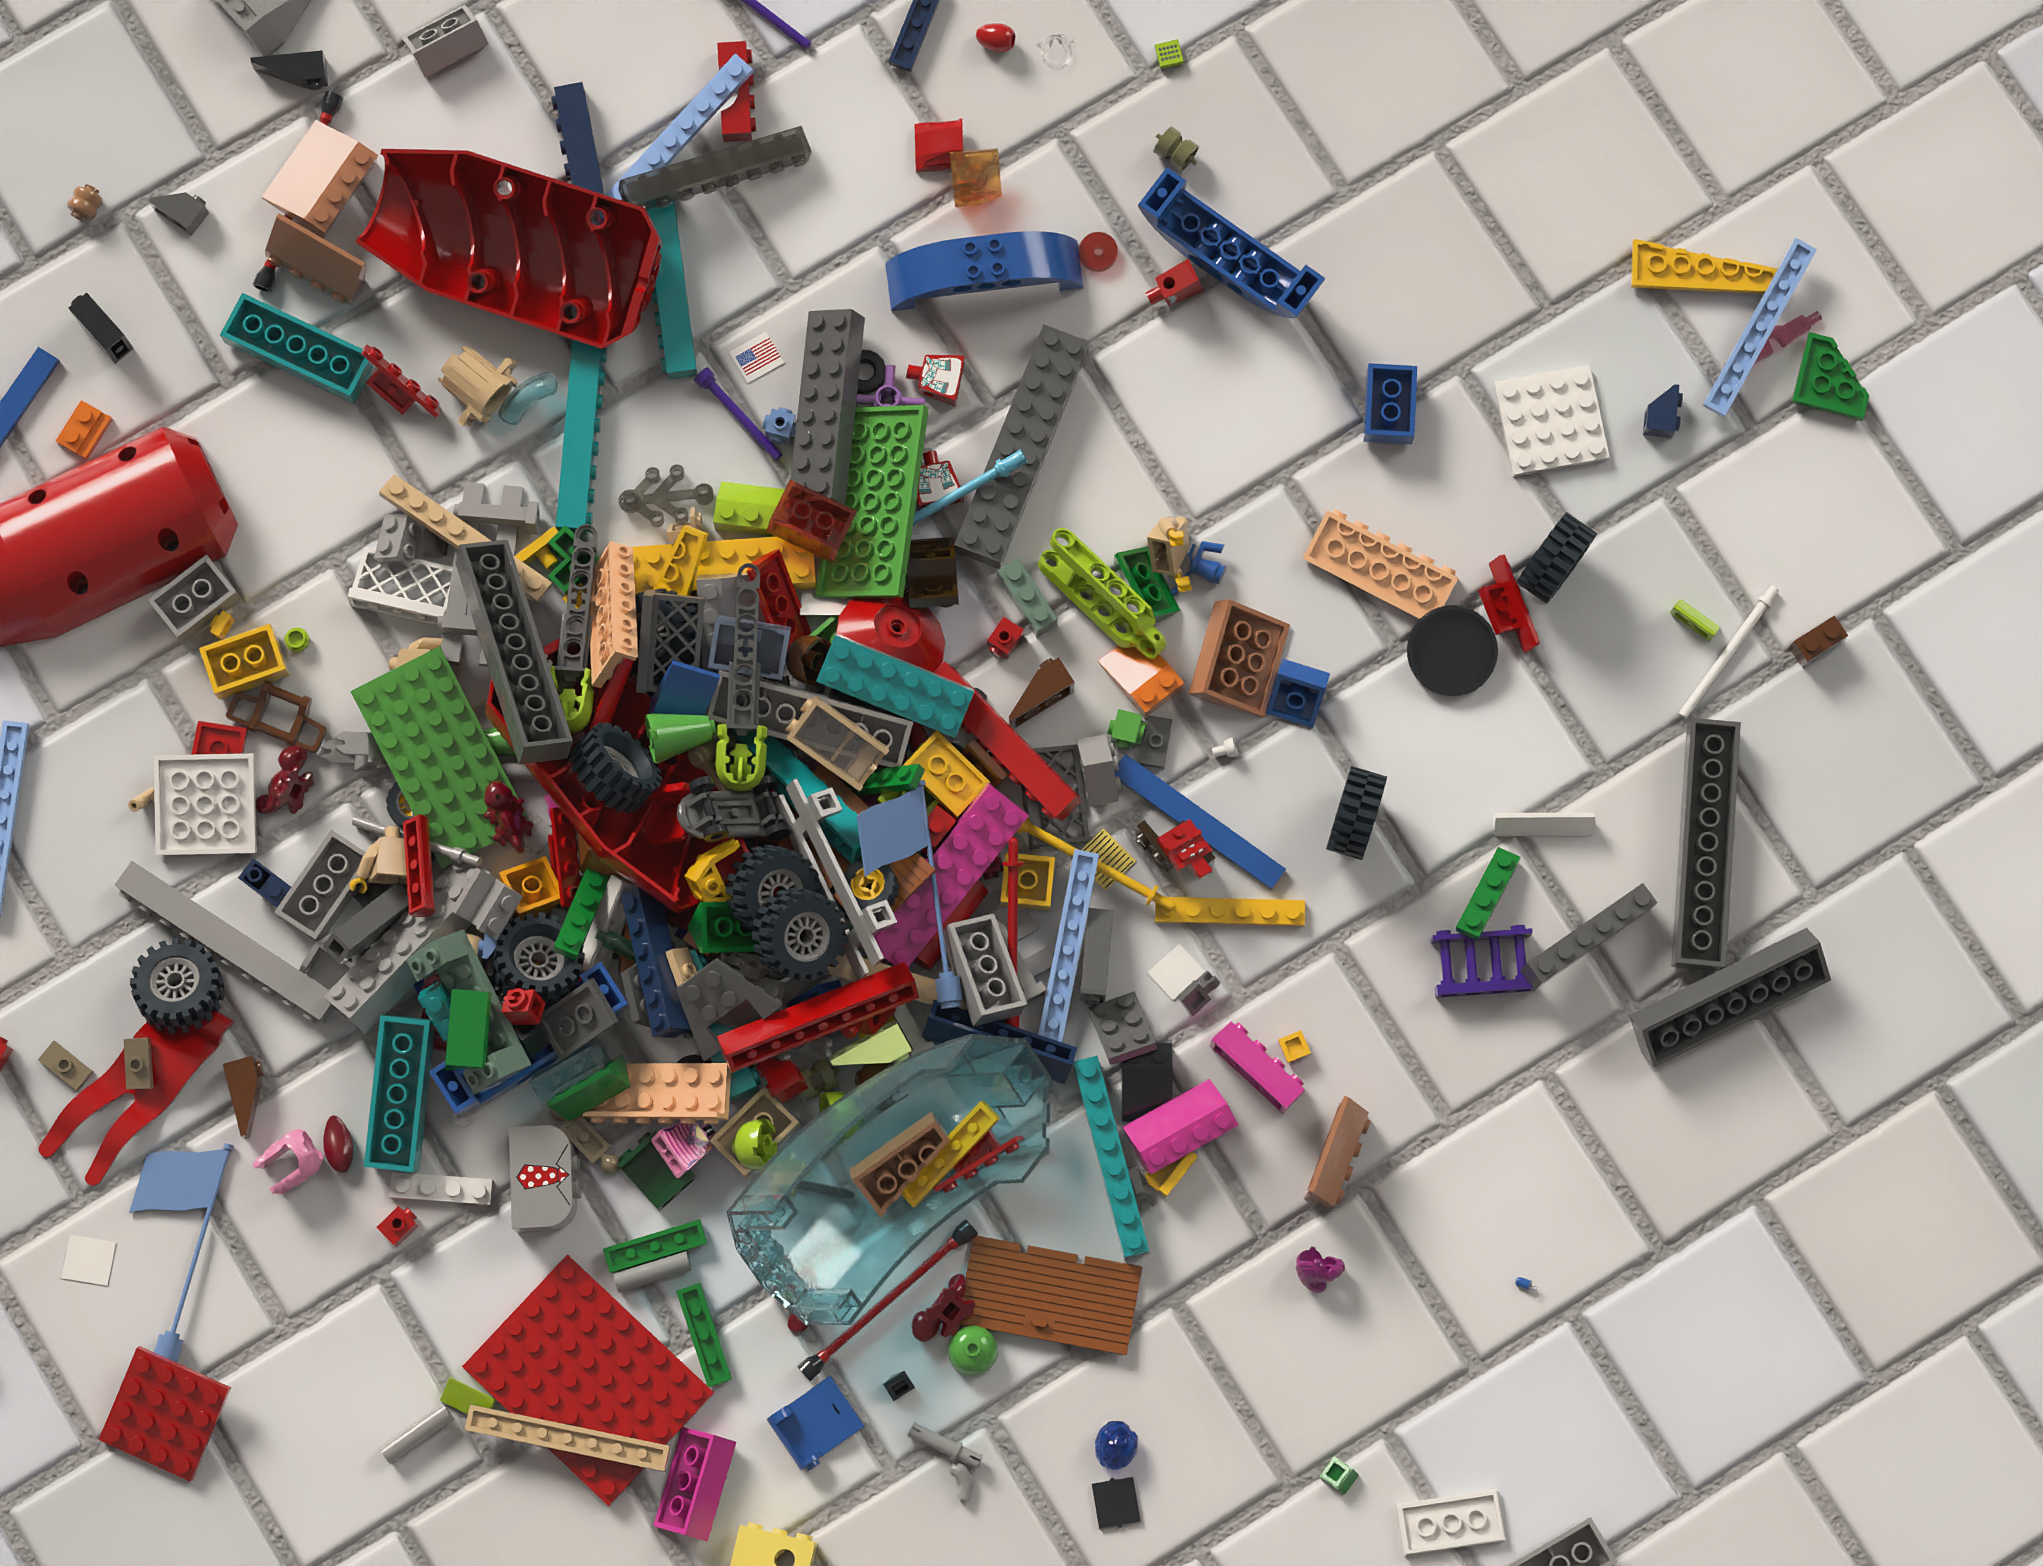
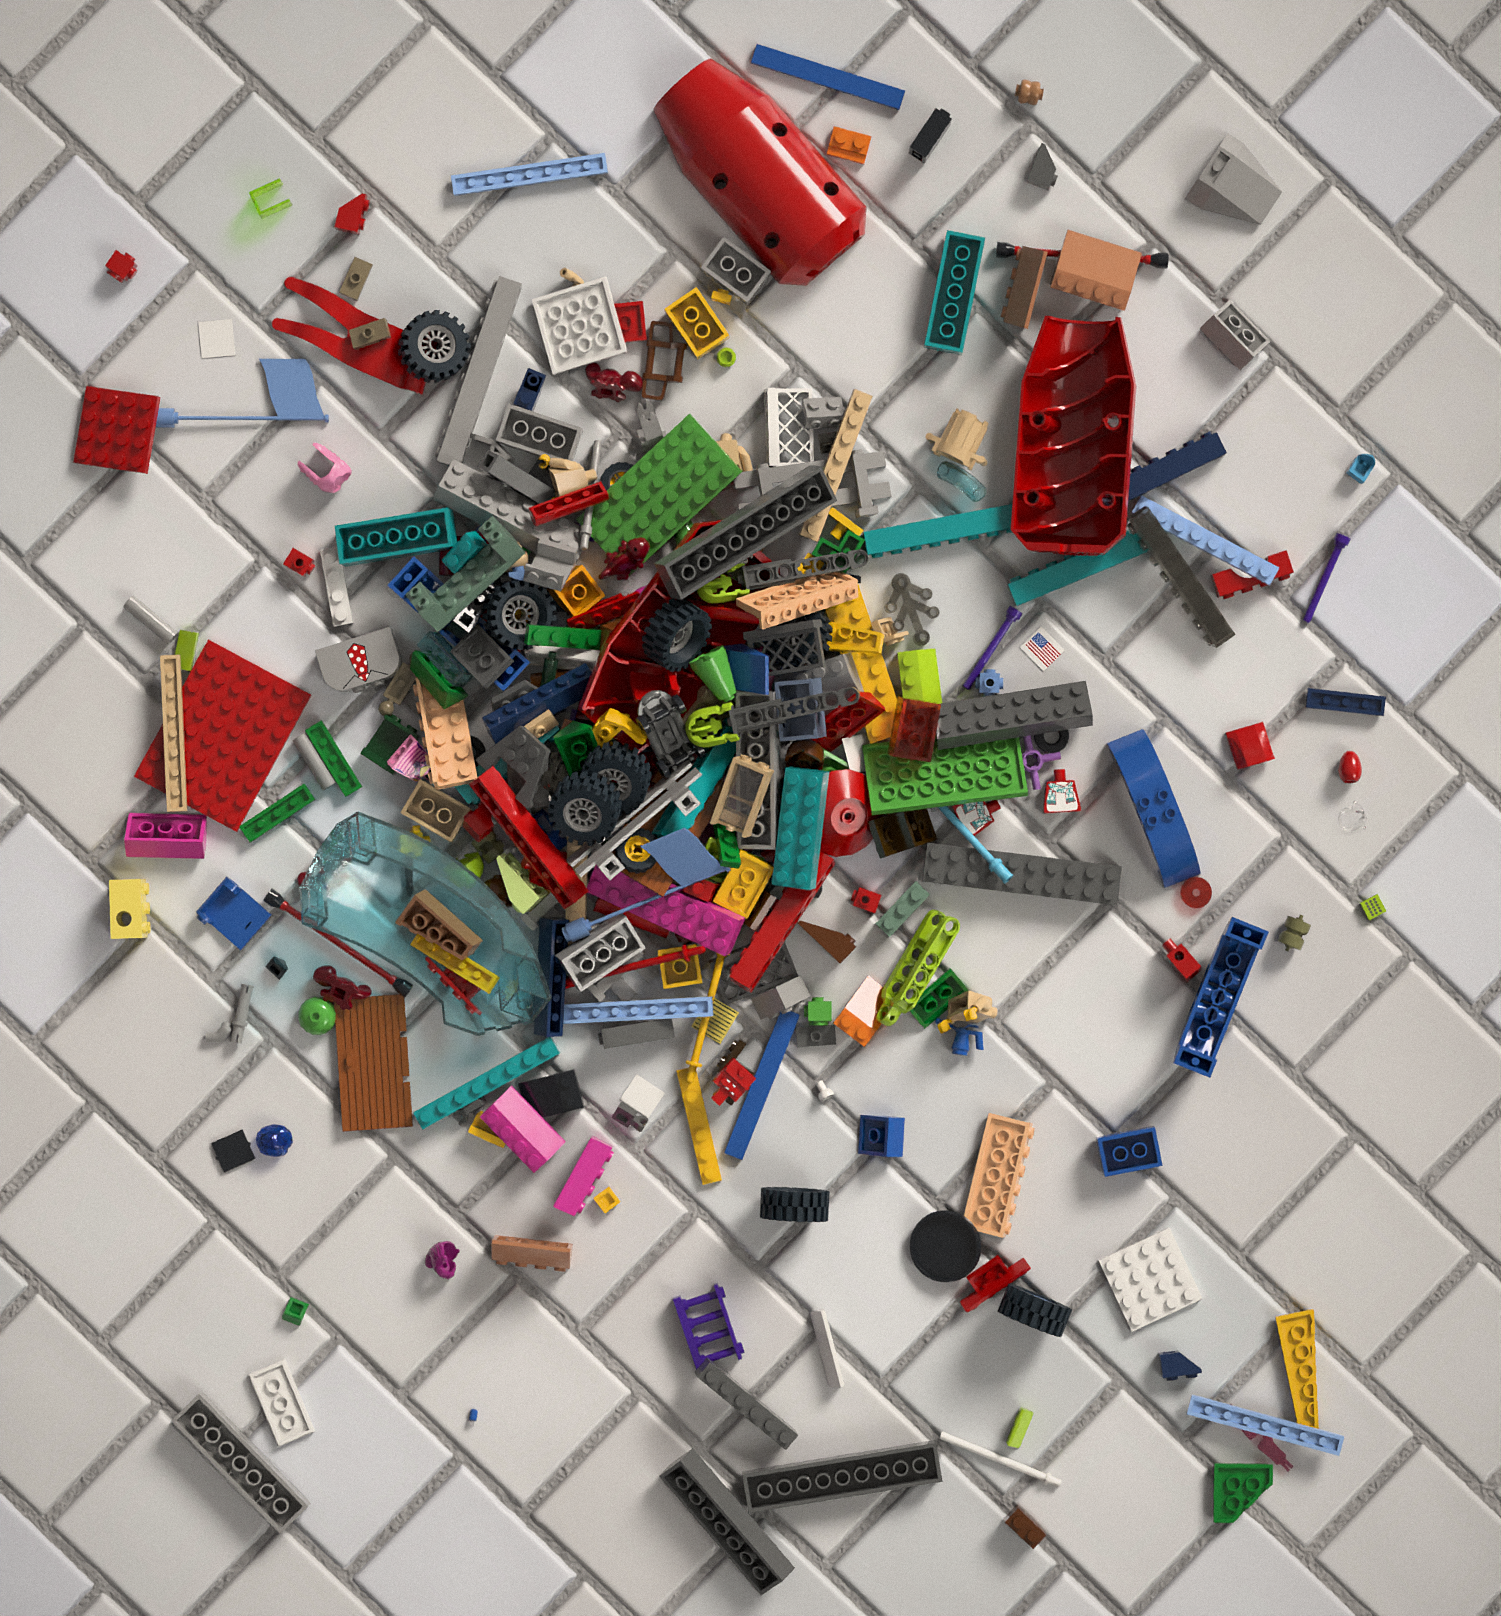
camera: 80 degrees right, 10 degrees up
(244, 1087) = (375, 417): reddish brown slope -> none
(300, 69) = (1181, 231): black slope -> none
(338, 1144) = (348, 500): dark red arm -> none
(394, 386) = (942, 376): red bracket -> none
(468, 1030) = (449, 578): green slope -> none
(523, 1007) = (478, 614): red brick -> none
(754, 1144) = (422, 815): lime cylinder -> none
(975, 176) = (1228, 781): clear orange slope -> none
(1122, 1028) = (585, 1067): dark grey plate -> none
(1239, 658) = (897, 1083): nougat slope -> none
(1488, 893) = (761, 1318): green plate -> none

